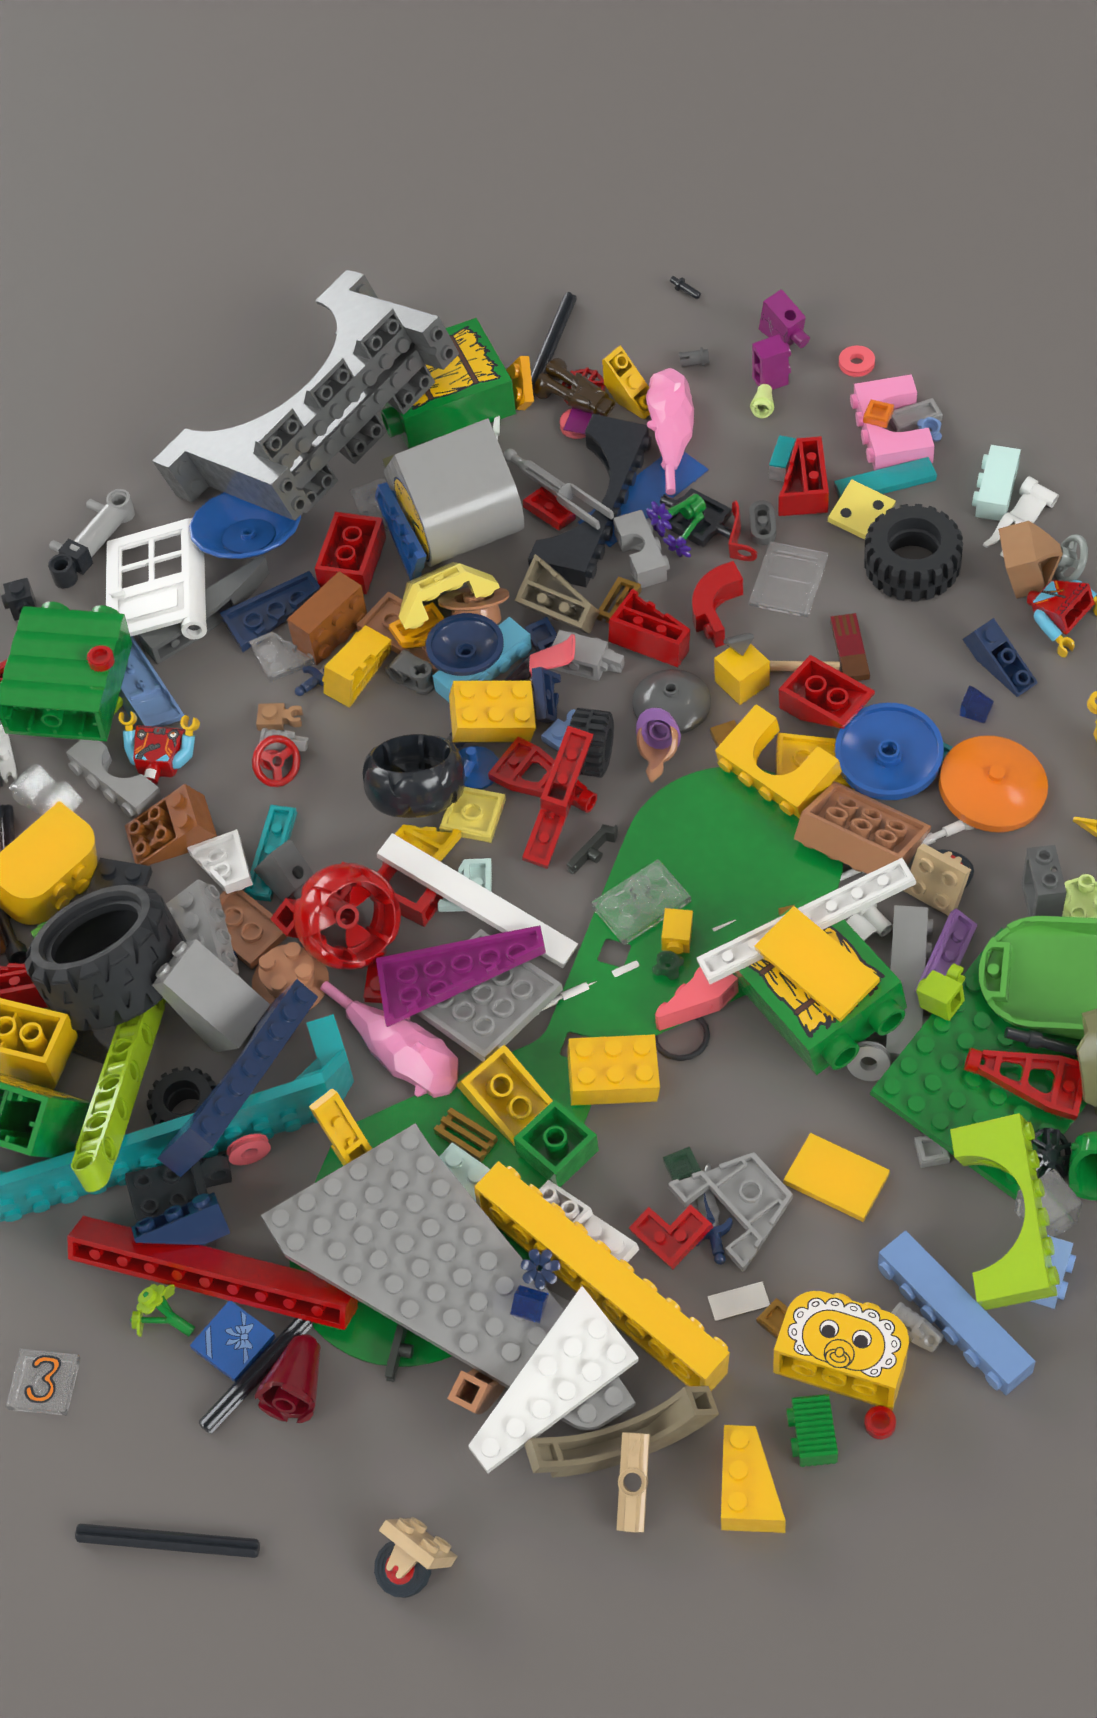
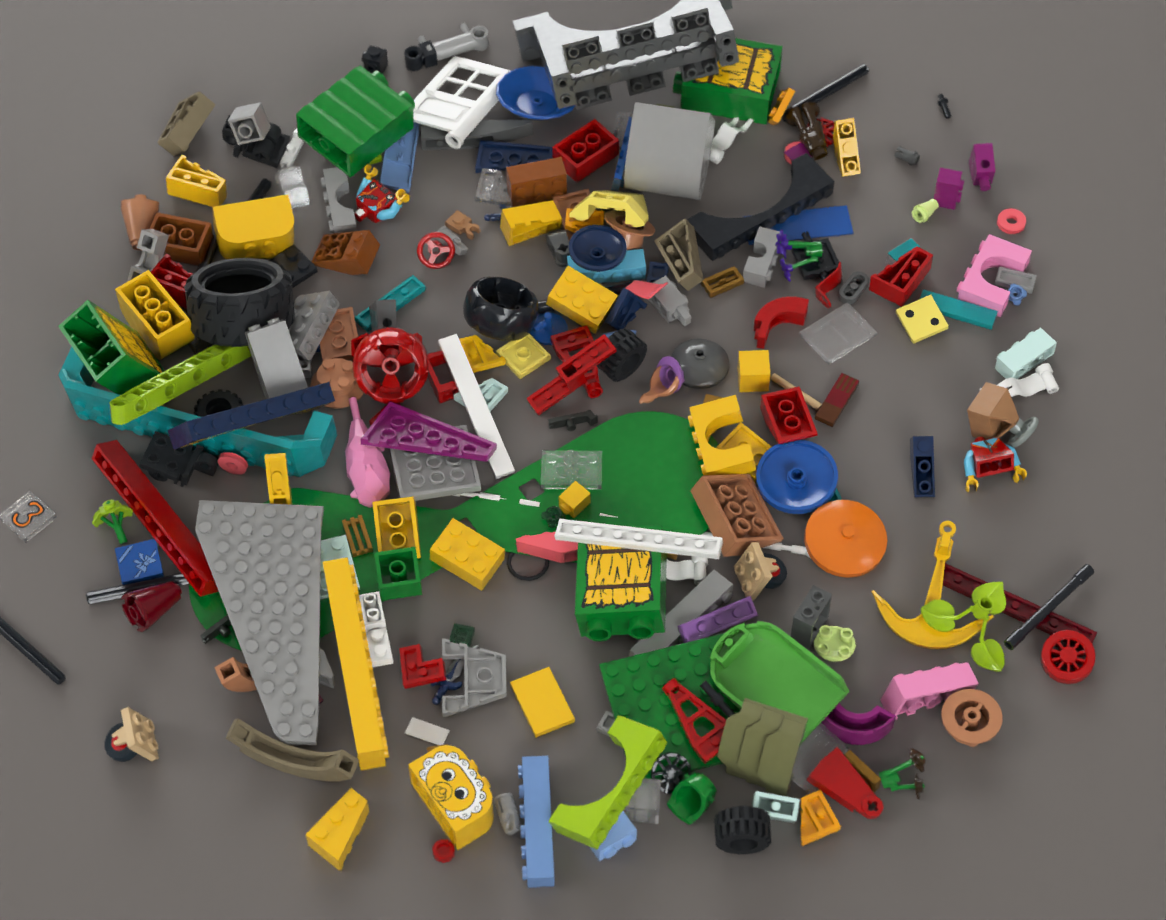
camera: 30 degrees right, 0 degrees up
(100, 658) = (375, 123): red tile -> none
(185, 1224) = (166, 482): dark blue slope -> none
(224, 861) = (358, 290): white wing -> none
(529, 1303) = (300, 646): clear blue slope -> none
(544, 1270) = (317, 633): dark blue plant -> none
(546, 507) = (733, 195): red wing -> none
(563, 491) = (744, 191): light grey piece -> none
(566, 1369) = (292, 696): white wing -> none
(633, 1503) = (269, 793): tan piece -> none
(648, 631) = (719, 309): red wedge -> none
(672, 419) = (855, 186): bright pink piece -> none
(739, 642) = (759, 350): dark grey slope -> none
(814, 1430) = (401, 827): green brick -> none
(817, 963) = (619, 566): yellow tile -> none
(870, 1072) = (621, 642): light grey piece -> none
(878, 413) = (985, 262): orange tile -> none
(913, 577) = (921, 384): black tyre -> none
(942, 993) = (687, 636): lime brick -> none
(976, 705) = (881, 484): clear blue slope -> none

